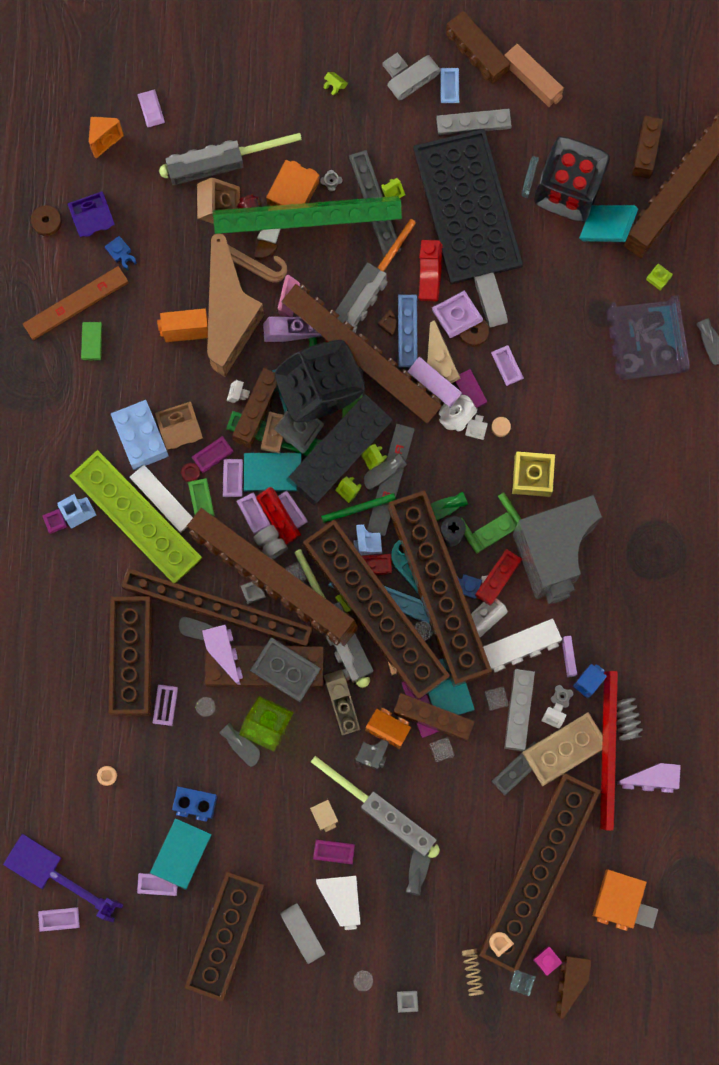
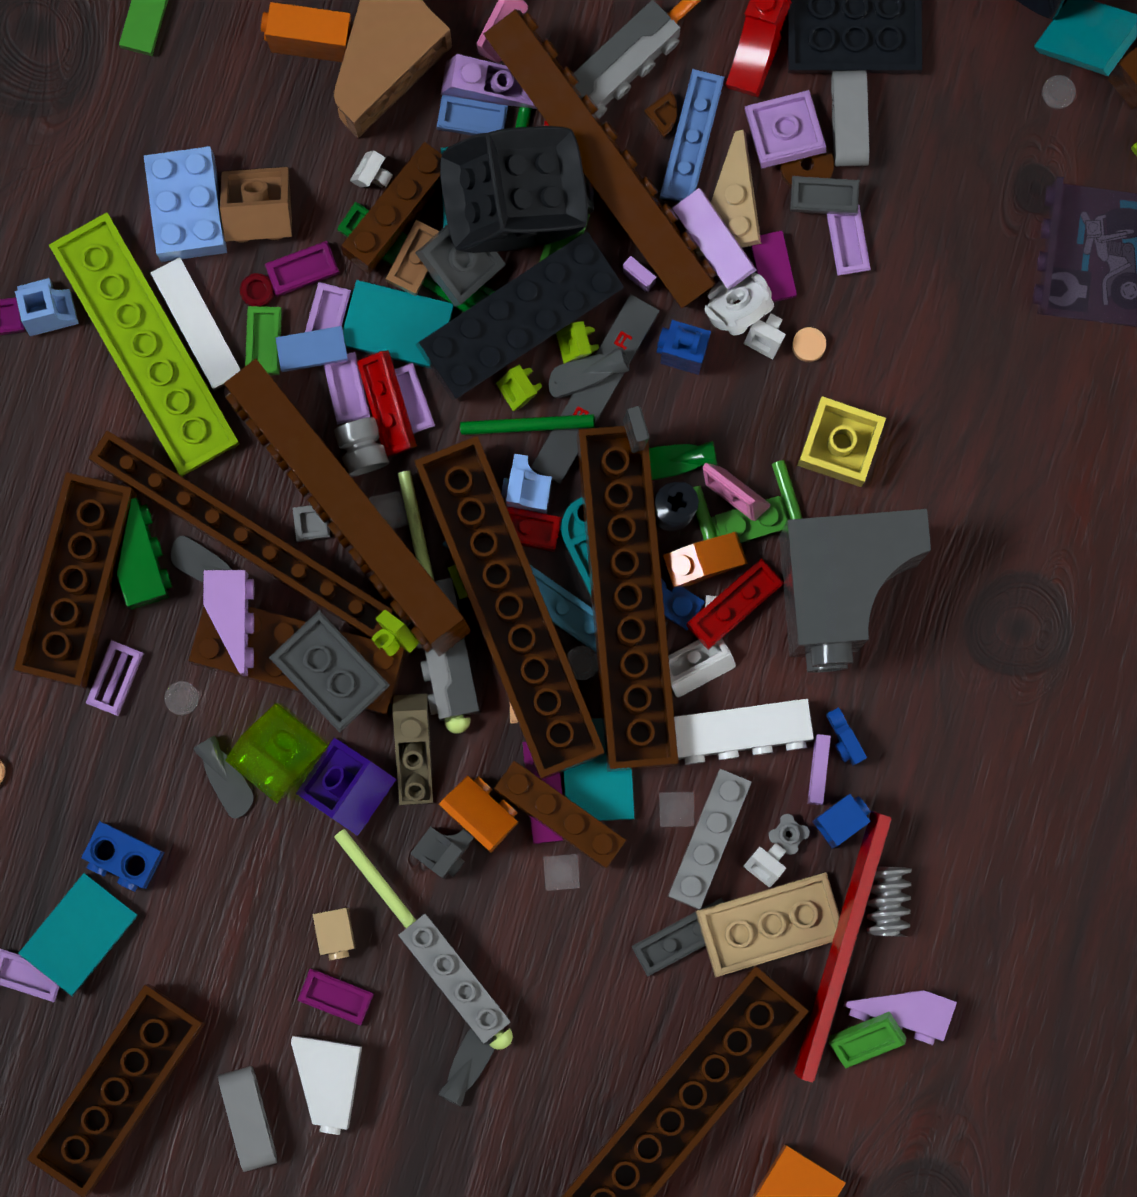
camera: 15 degrees right, 5 degrees up
(164, 641) = (139, 565): none -> green slope
(229, 496) = (311, 349): none -> medium blue tile
(283, 349) = (470, 116): none -> medium blue tile
(310, 732) = (346, 786): none -> dark purple slope
(316, 640) = (393, 634): none -> lime tile
(398, 411) = (639, 274): none -> lavender tile
(421, 493) = (636, 429): none -> dark grey tile
(433, 444) = (683, 346): none -> blue brick
(476, 556) = (704, 559): none -> orange slope
(482, 516) = (734, 491): none -> bright pink slope
(488, 344) = (824, 195): none -> dark grey tile
(580, 636) = (848, 745): none -> blue plate
(599, 258) = (1058, 92): none -> clear plate
(636, 799) = (867, 1040): none -> bright green tile

